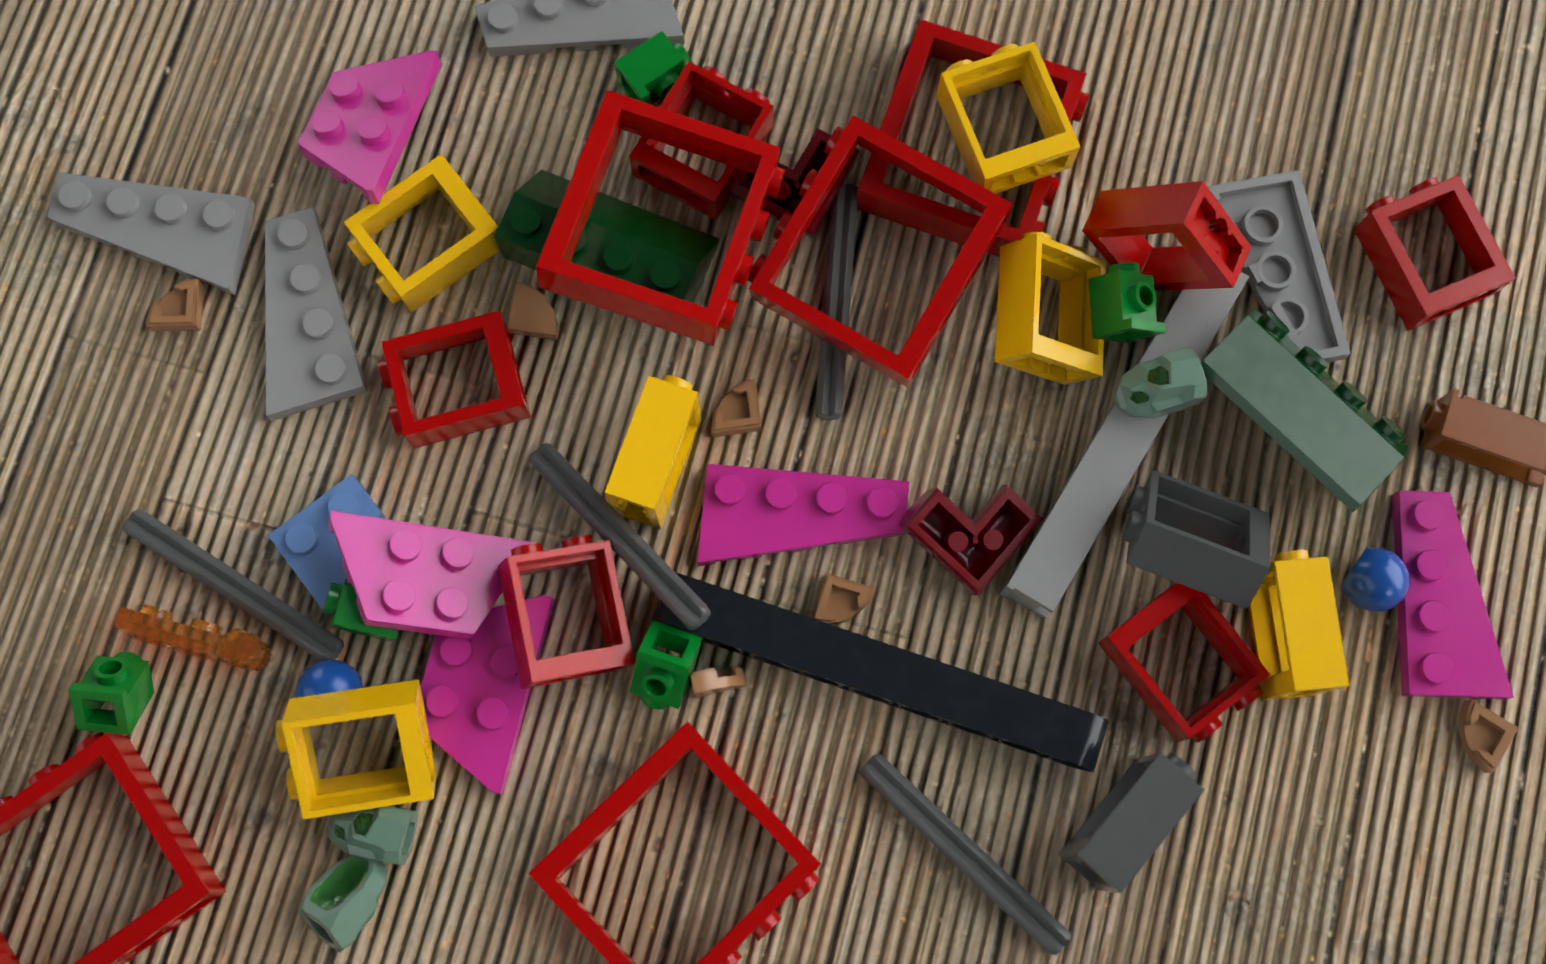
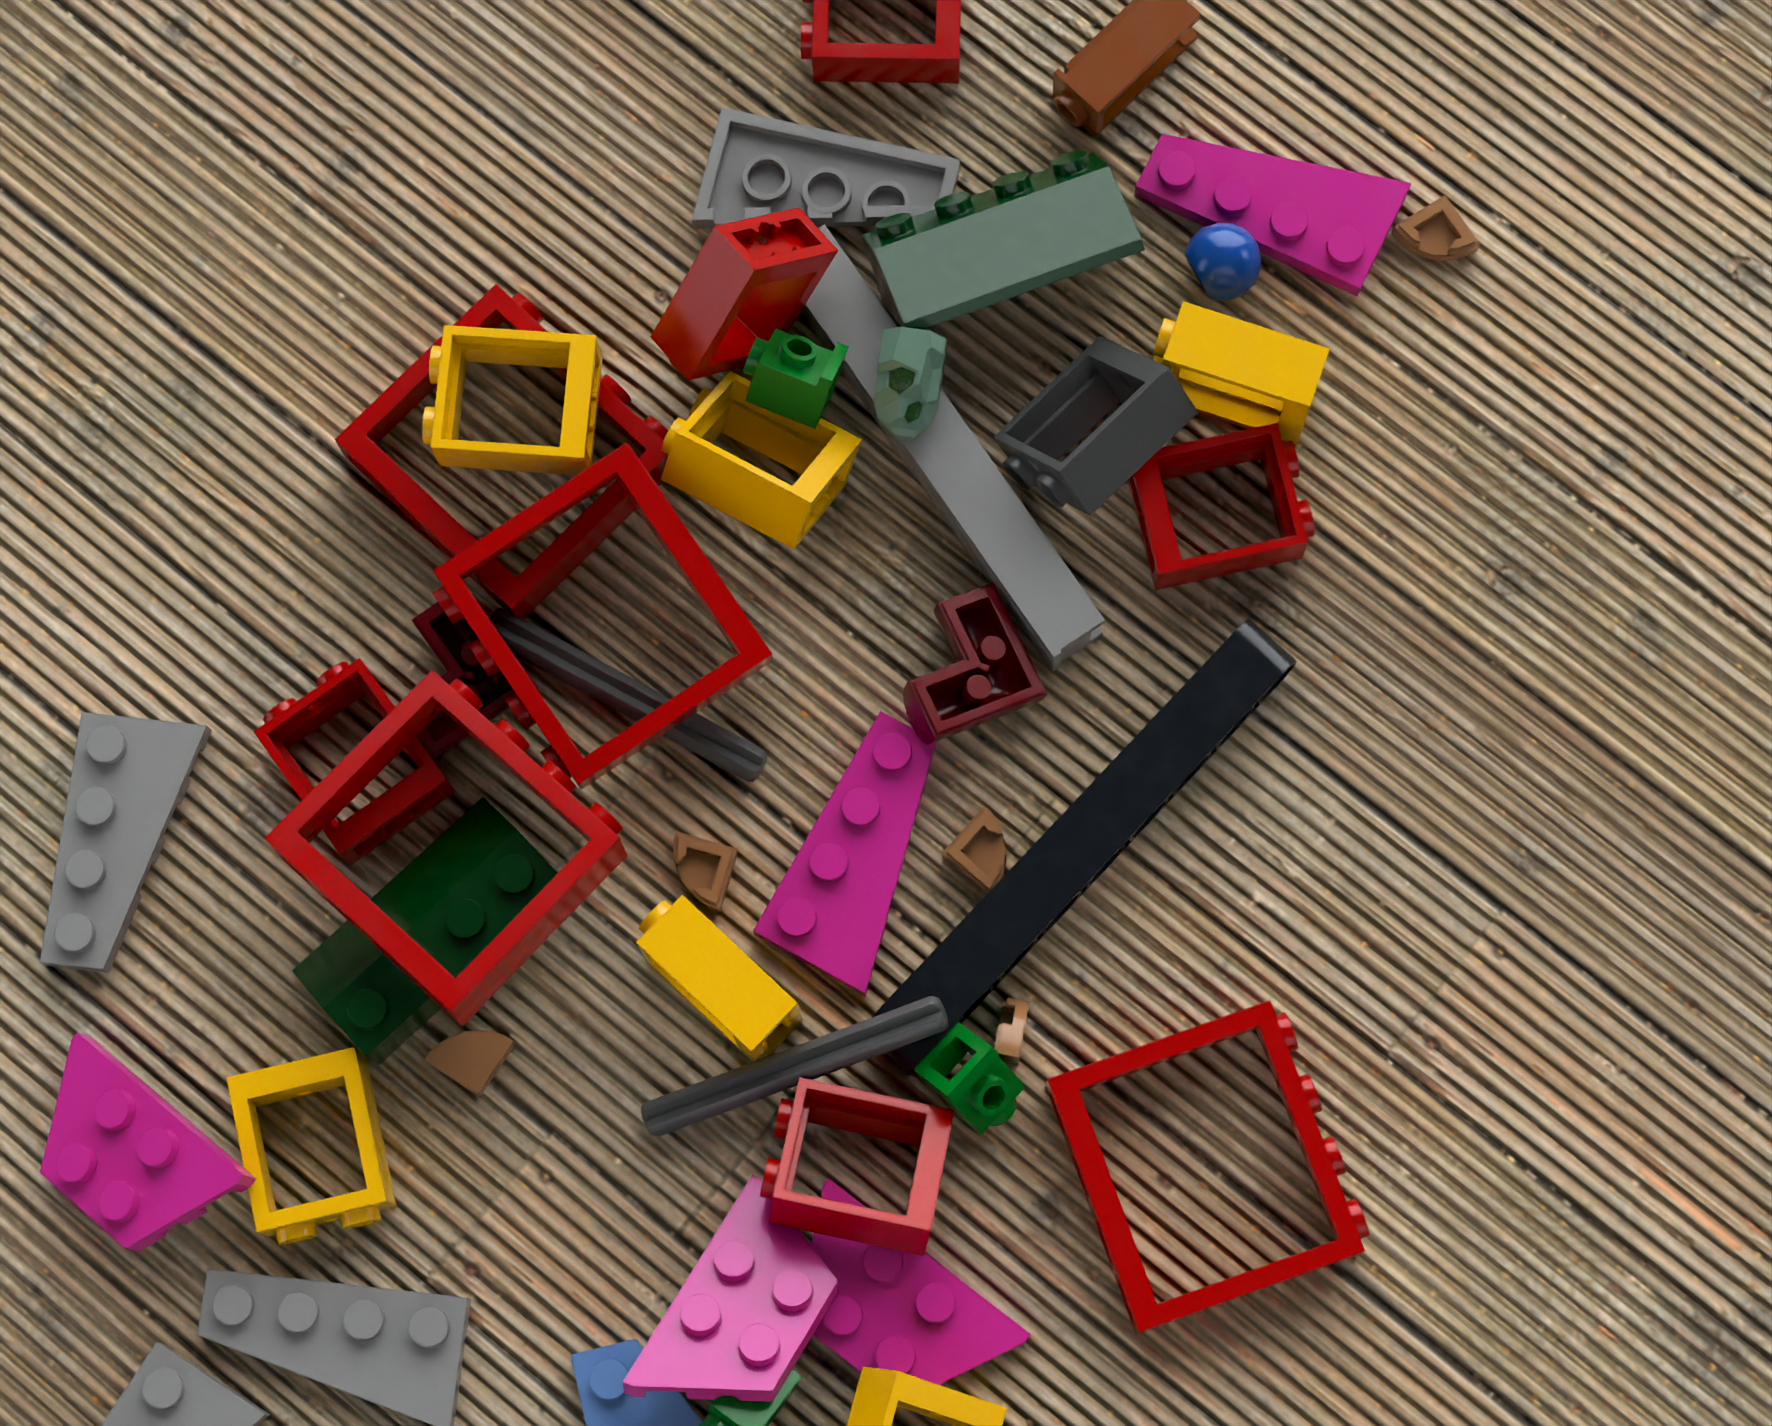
camera: 60 degrees left, 0 degrees up
(463, 421) = (521, 1115): red window -> none
(651, 68) = (239, 782): green brick -> none
(966, 854) = (1322, 843): dark grey axle -> none
(1132, 821) = (1369, 645): dark grey window -> none

